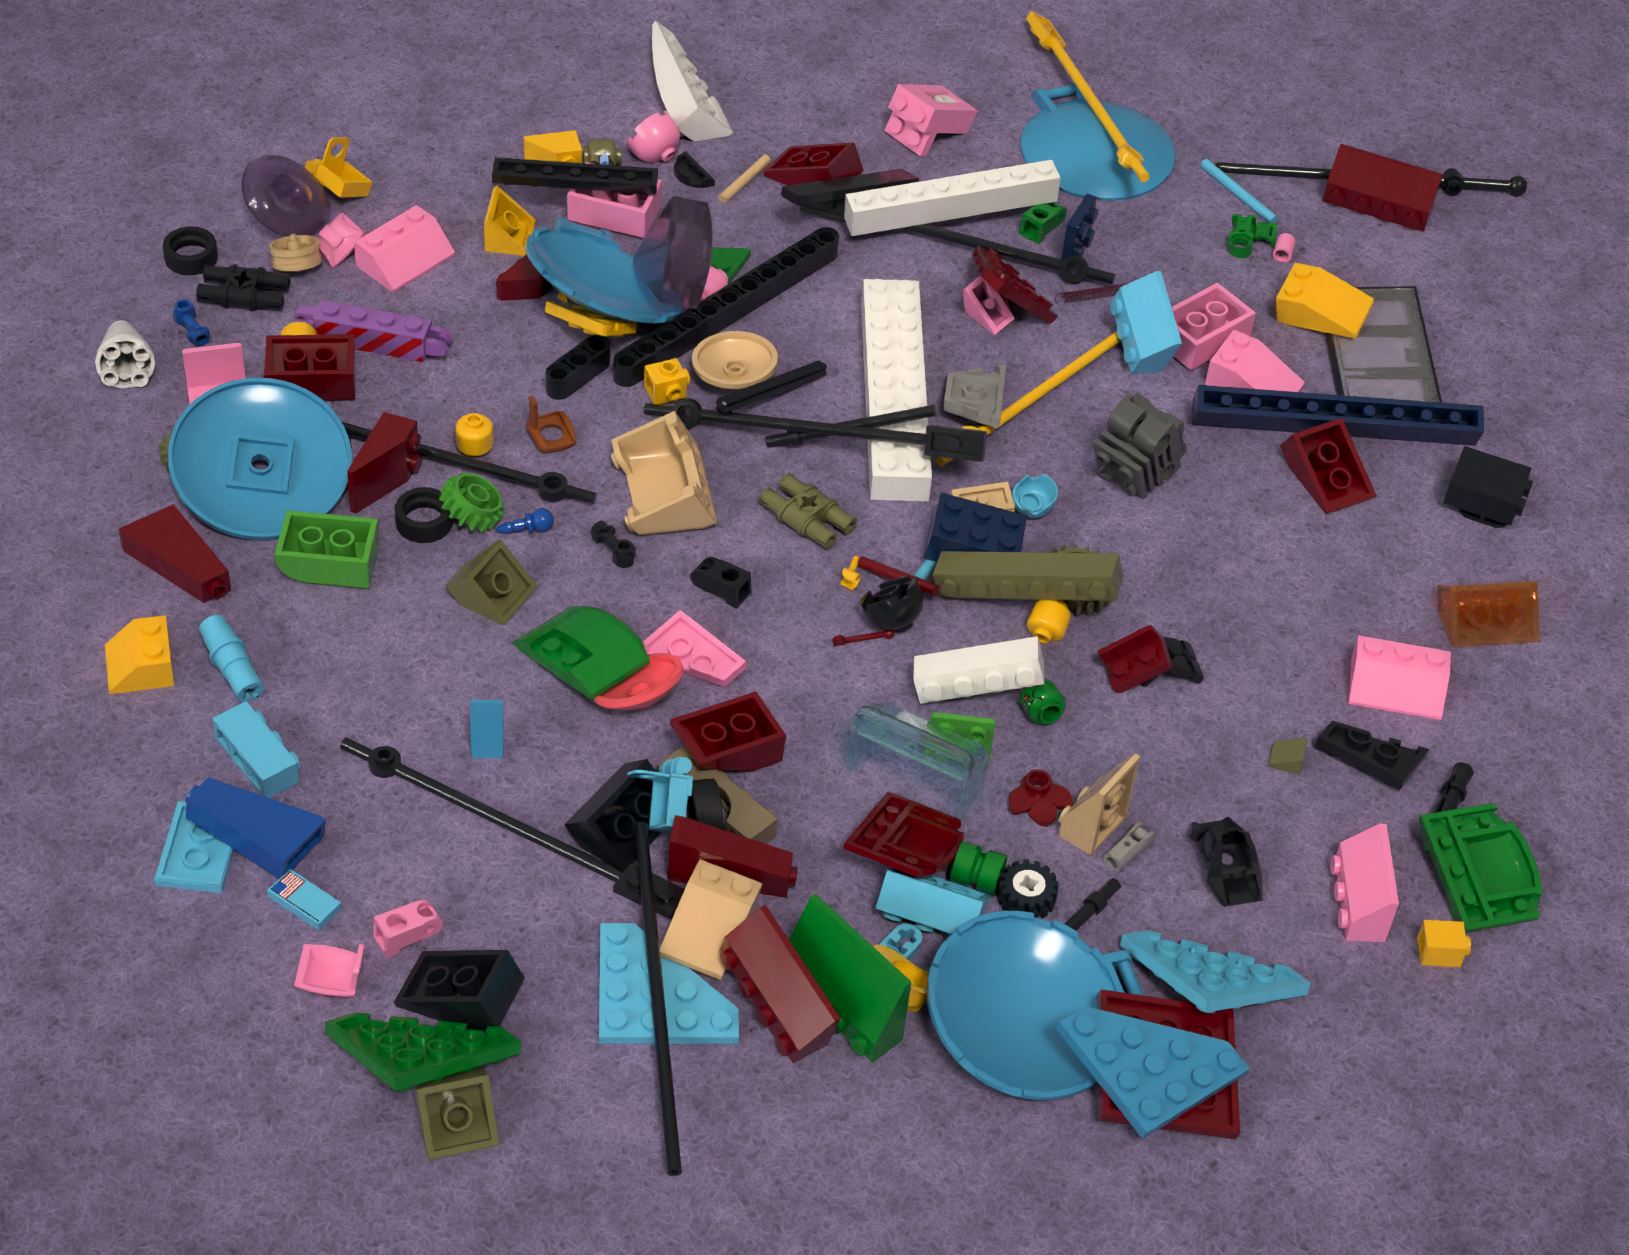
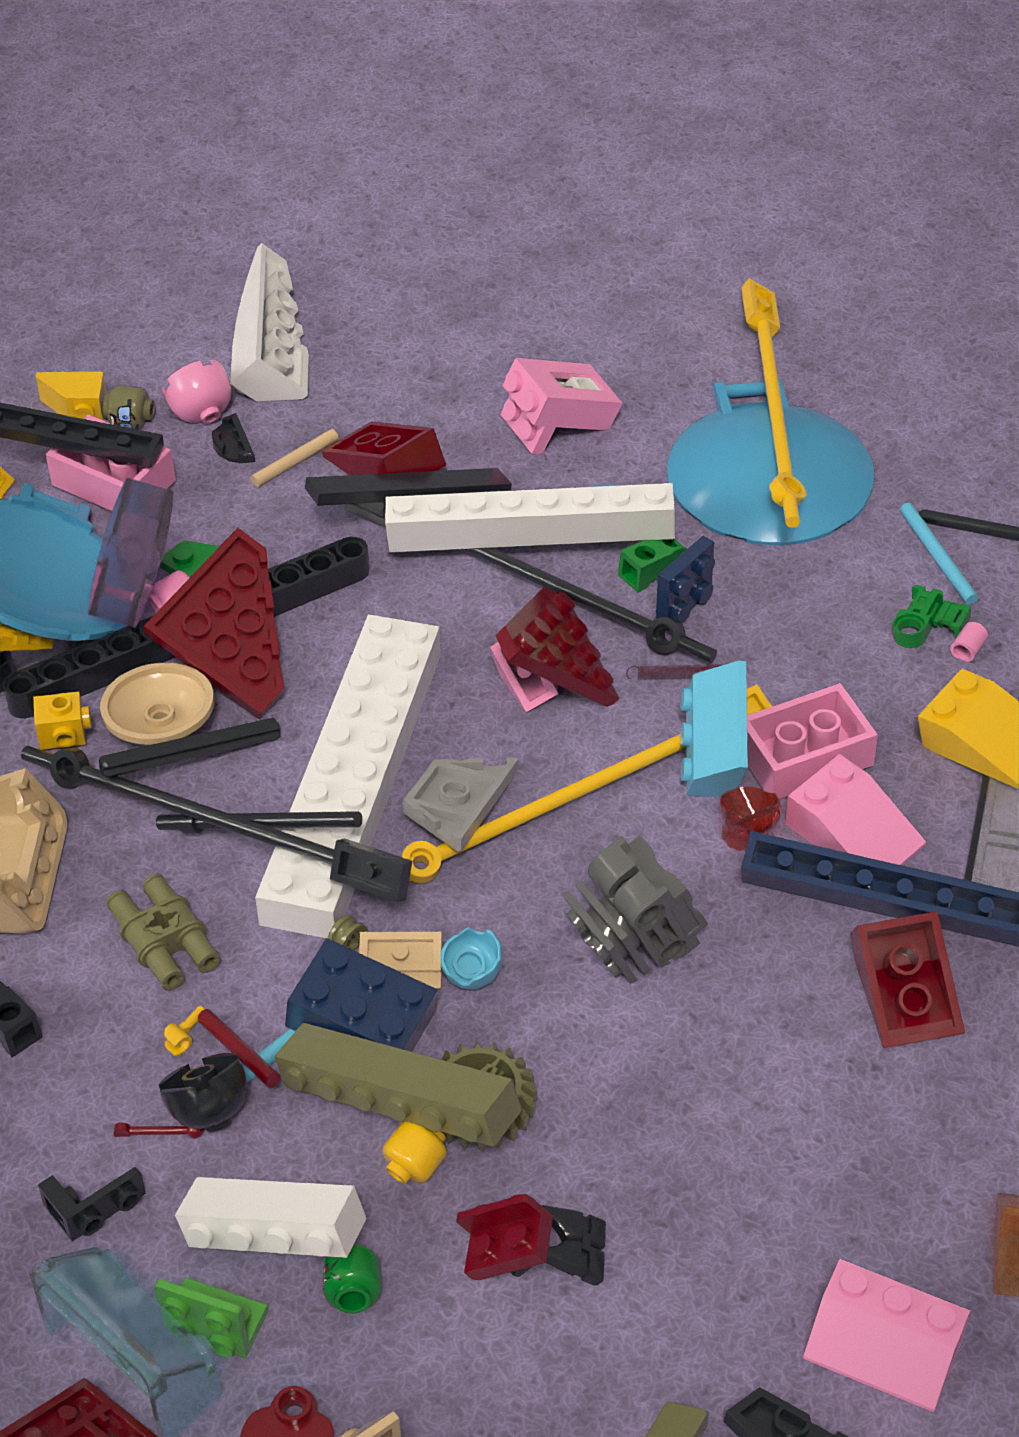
camera: 20 degrees right, 0 degrees up
(761, 299) = (227, 624): none -> dark red plate
(836, 696) = (88, 1216): none -> black bracket
(935, 492) = (347, 932): none -> olive bush
(1183, 379) = (747, 811): none -> clear red hair

